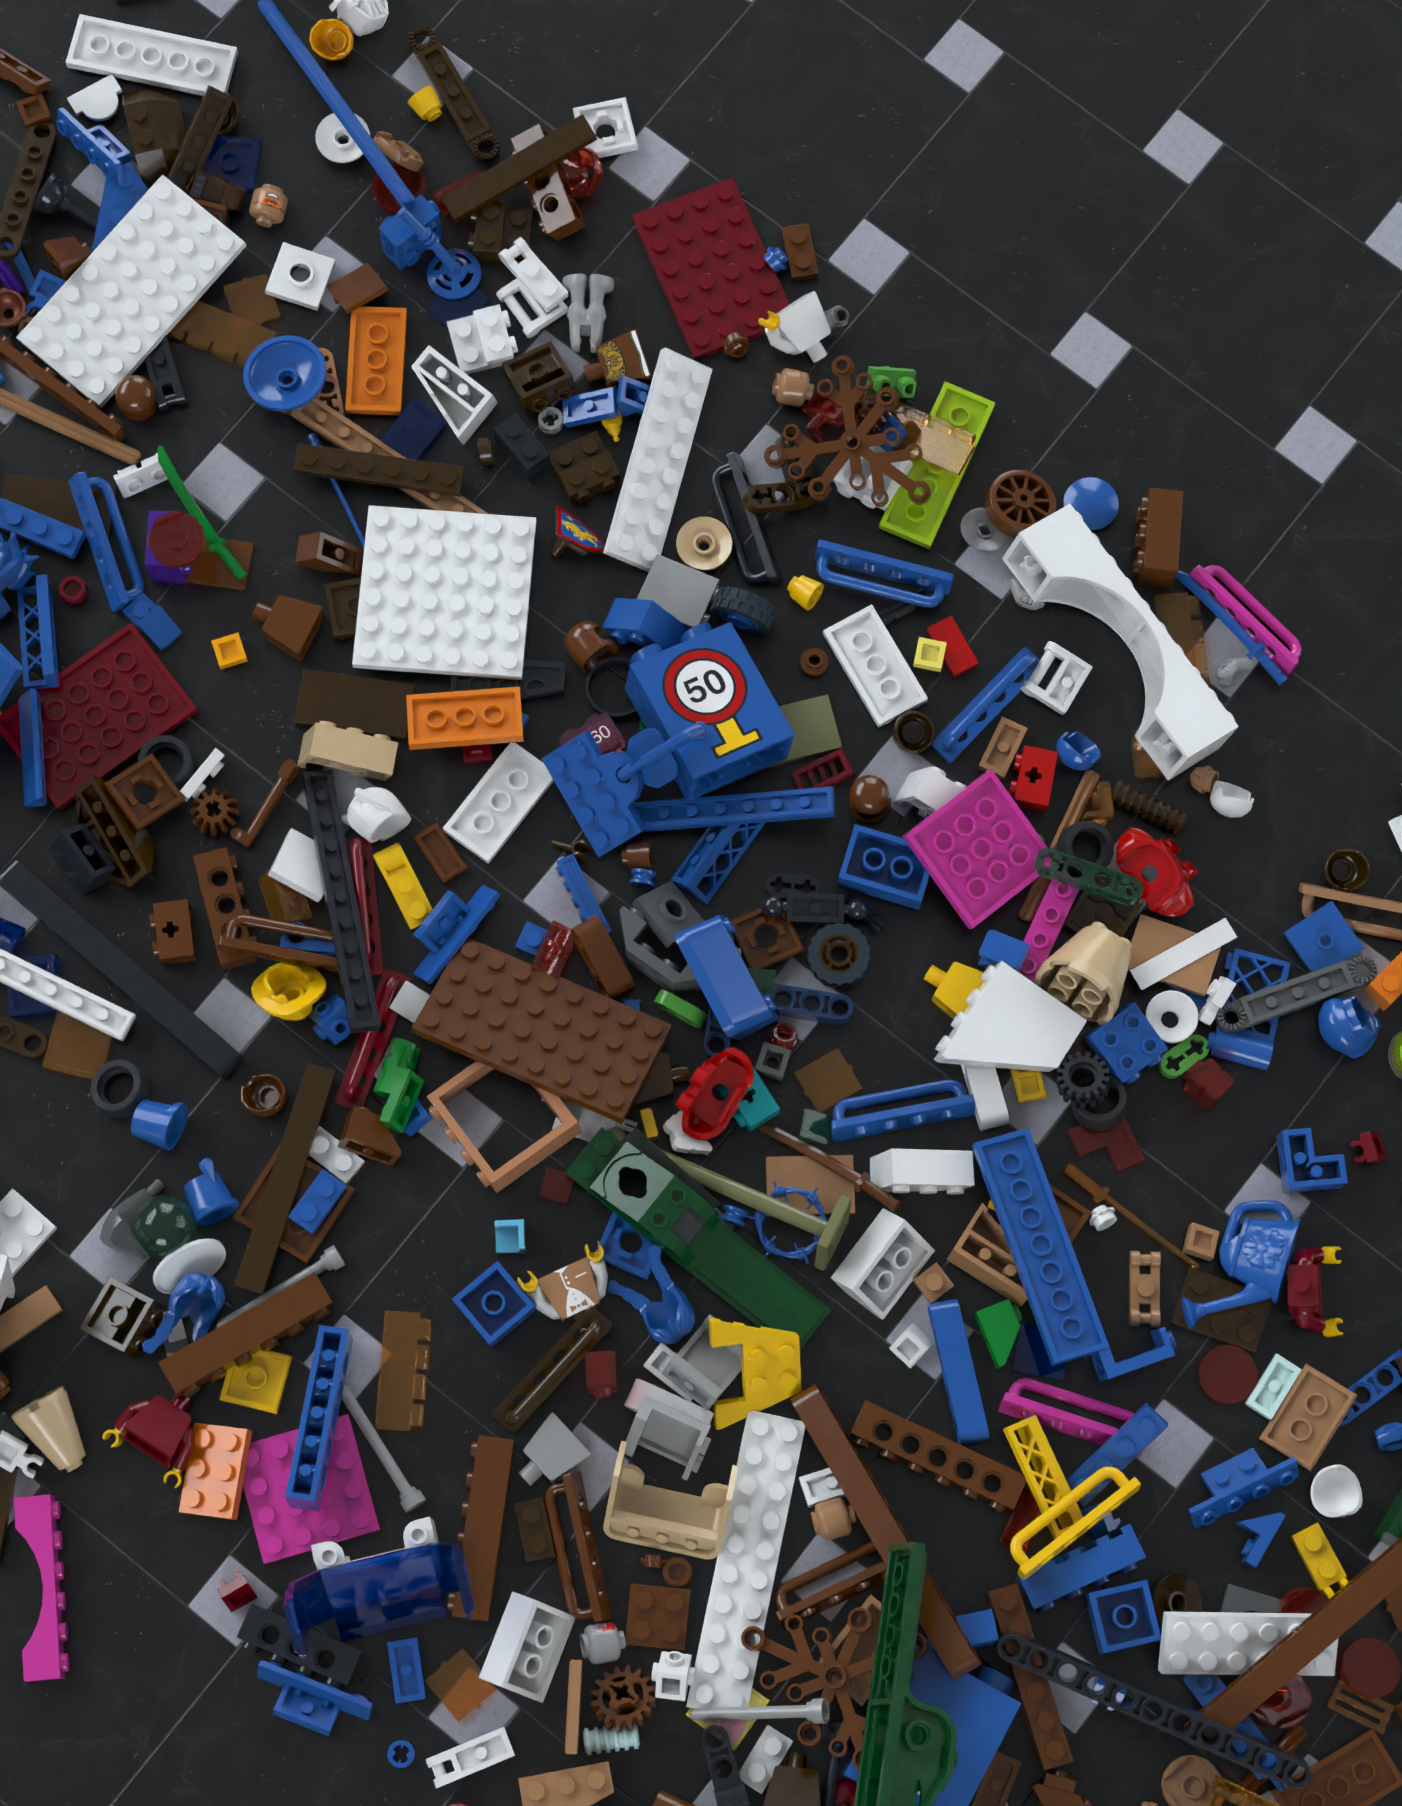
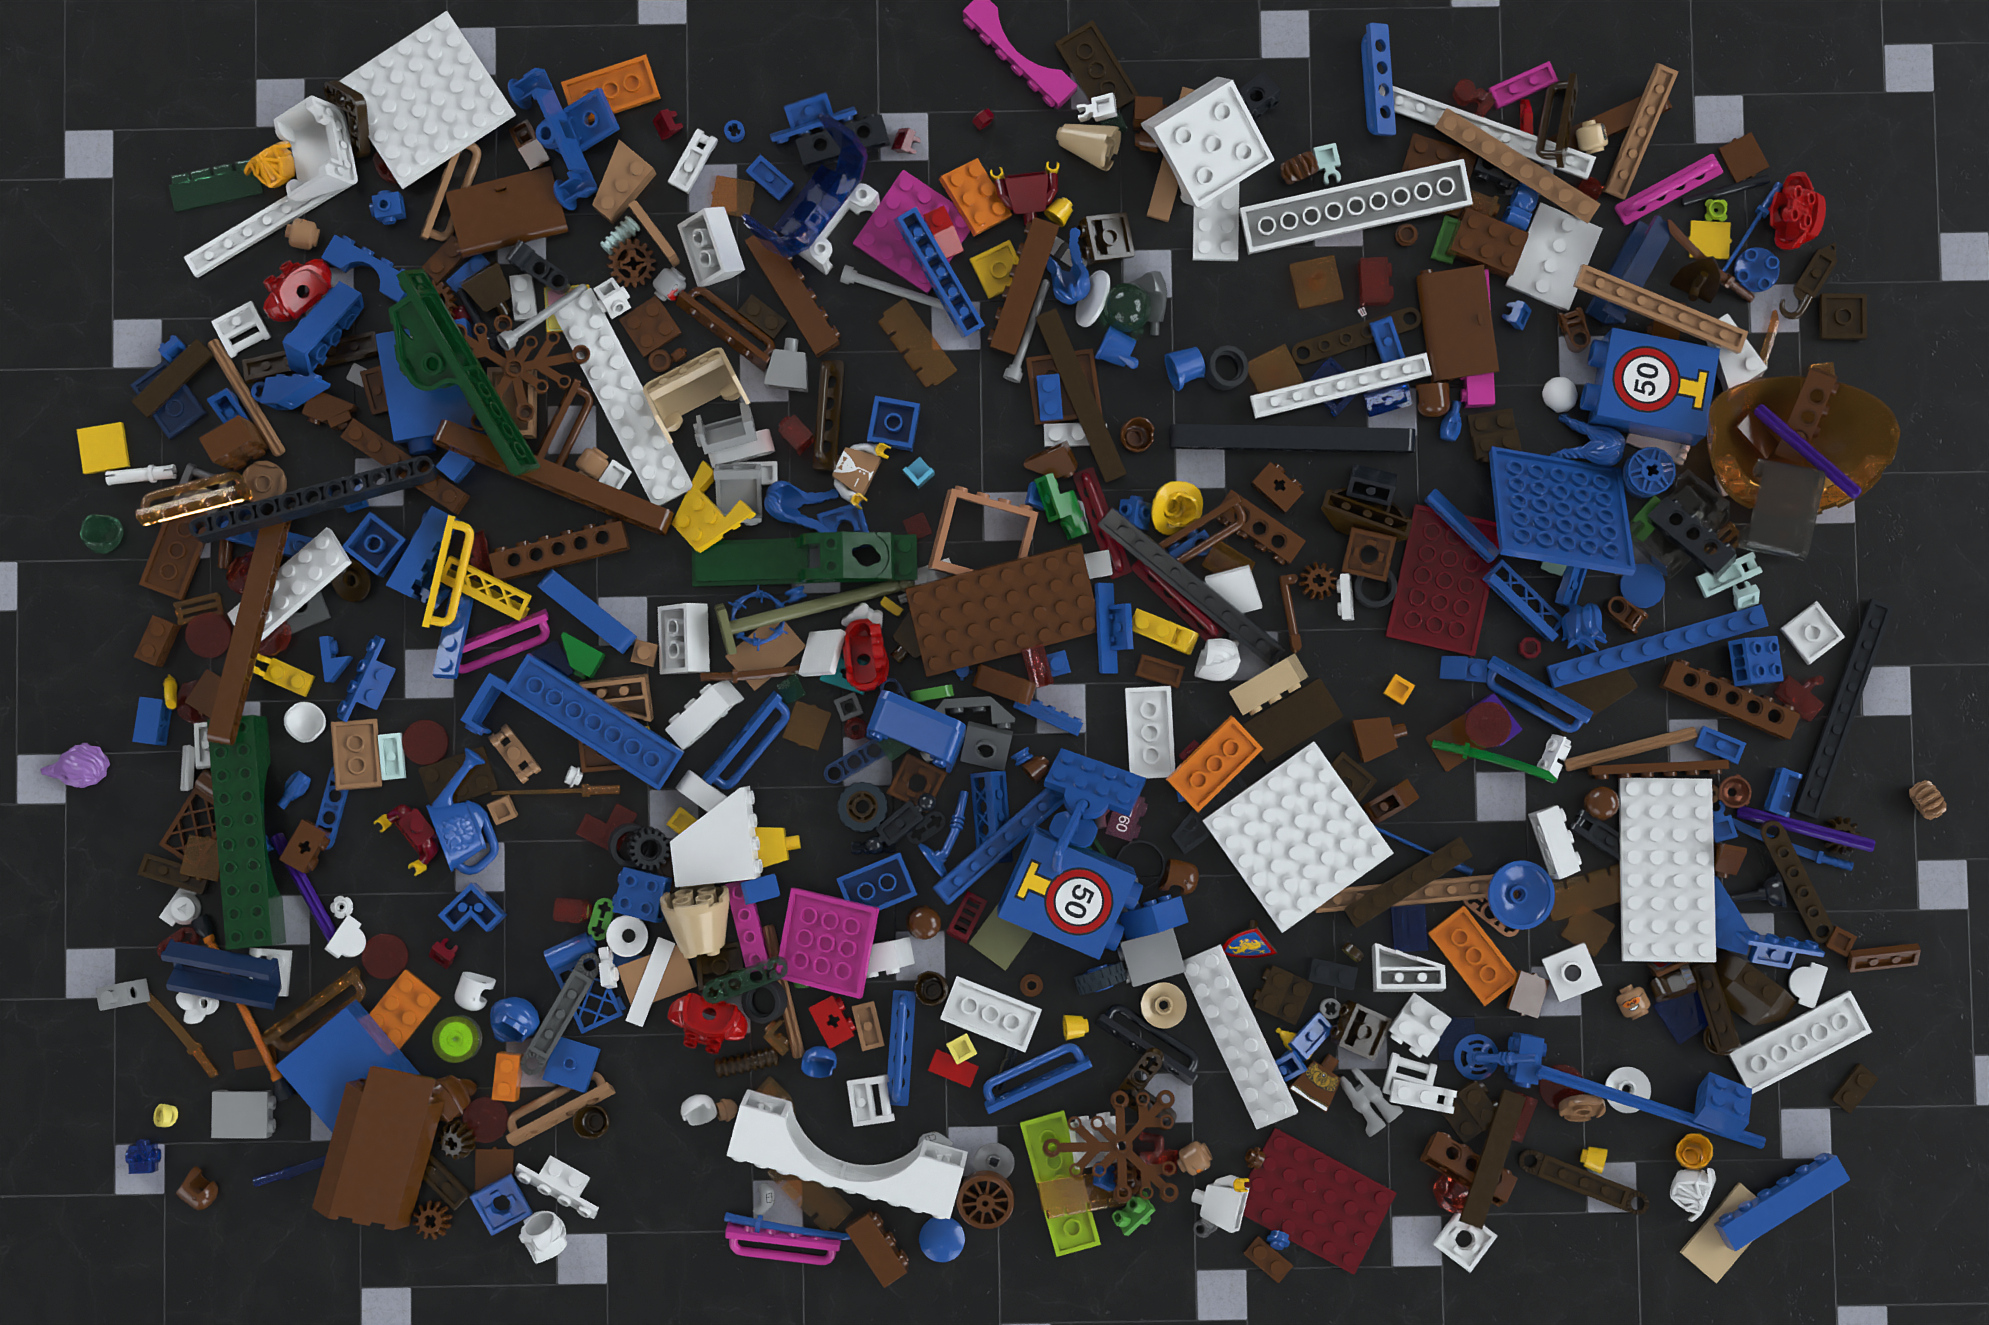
camera: 145 degrees right, 10 degrees up
(138, 1548) = (983, 118): none -> dark red tile
(144, 1385) = (1059, 211): none -> yellow hat
(211, 397) = (1555, 842): none -> white slope
(270, 54) = (1723, 1105): none -> blue brick
(277, 1457) = (943, 231): none -> slope
(576, 848) = (1078, 742): dark brown hand -> none
(648, 1148) = (855, 588): flat silver sticker -> none
(755, 1132) = (822, 653): none -> white tile
(804, 844) = (938, 858): none -> blue dish
(911, 1345) = (628, 606): white slope -> none
(1373, 1083) = (470, 989): none -> white helmet

